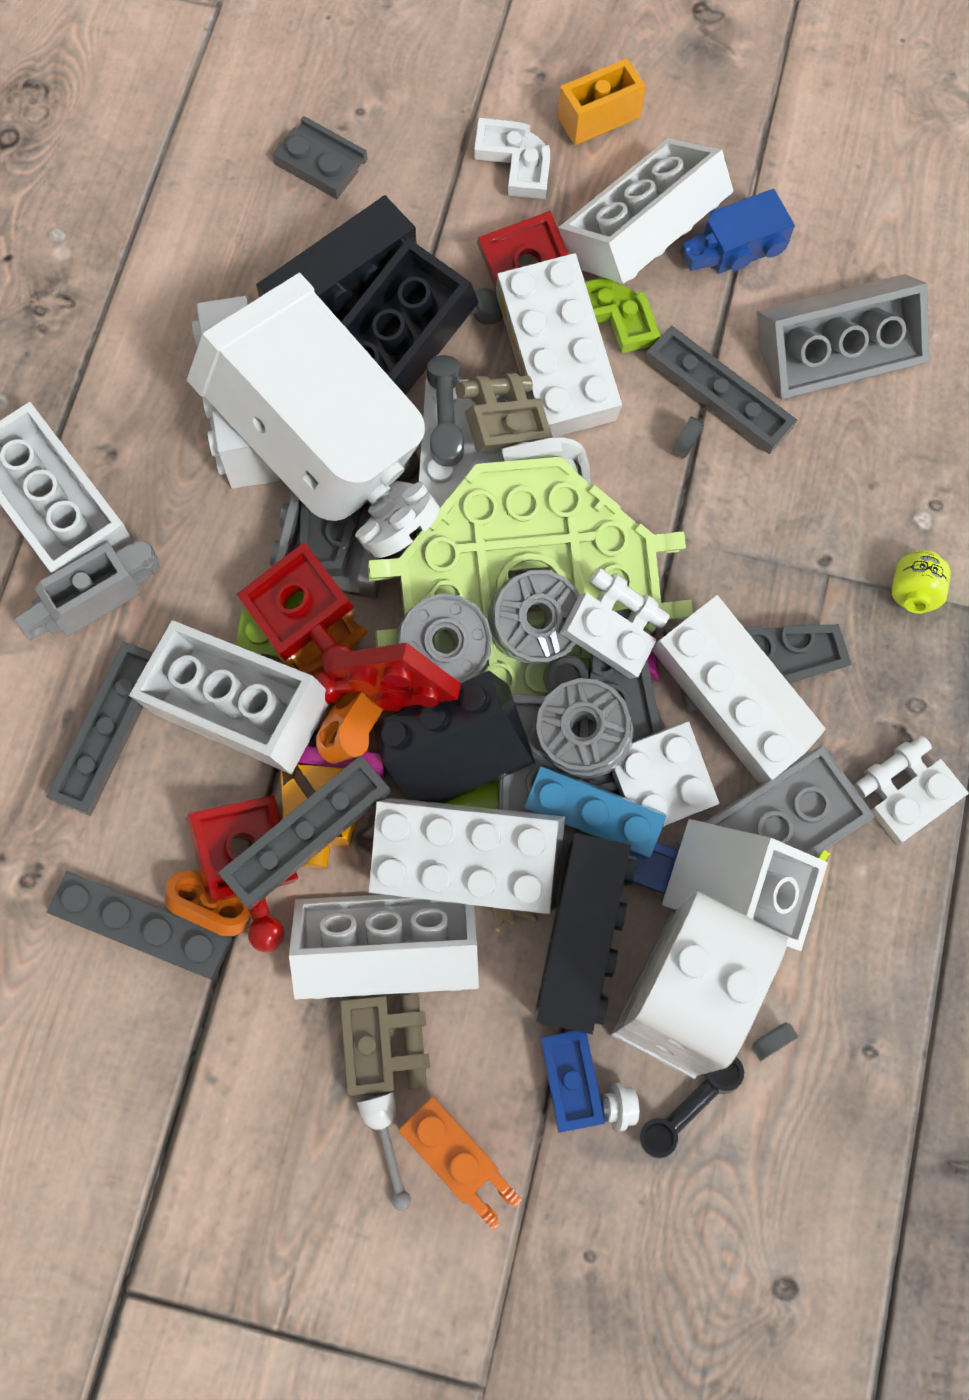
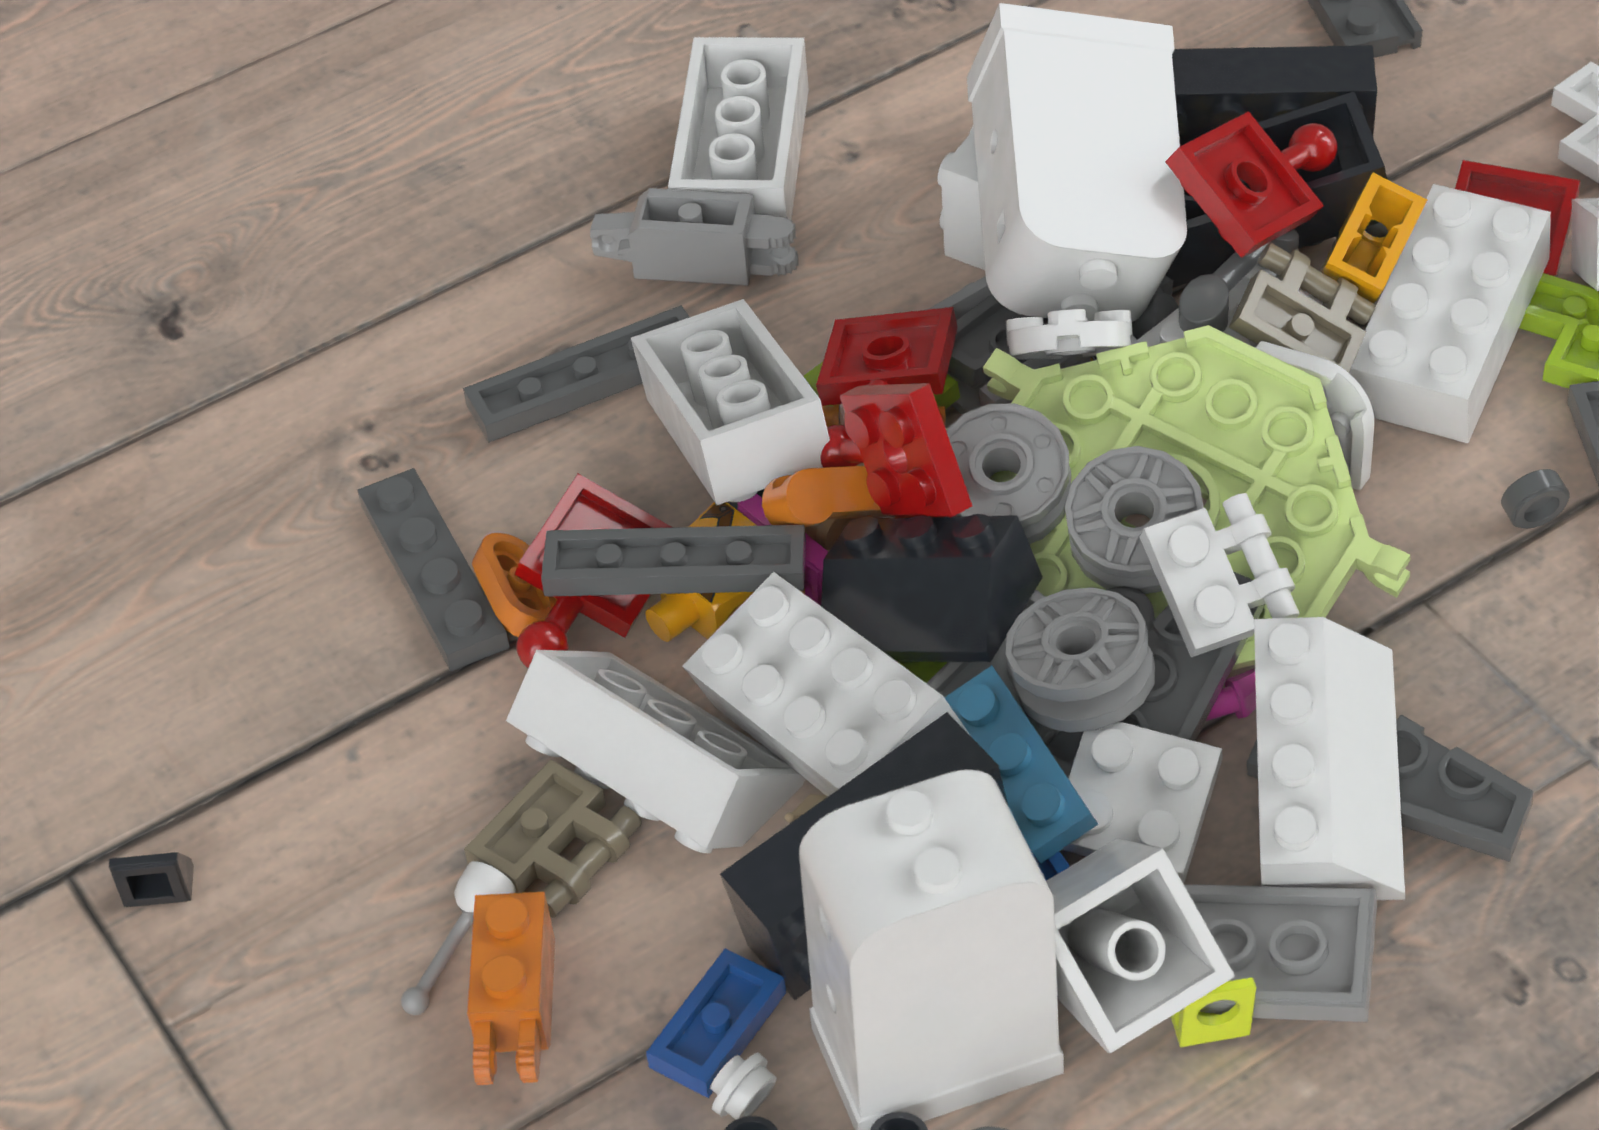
camera: 50 degrees right, 25 degrees down
(181, 1255) = (153, 878): none -> black slope
(403, 334) = (1278, 195): none -> red plate
(492, 337) = (1366, 258): none -> light orange torso
(917, 802) = (1459, 1061): white plate -> none

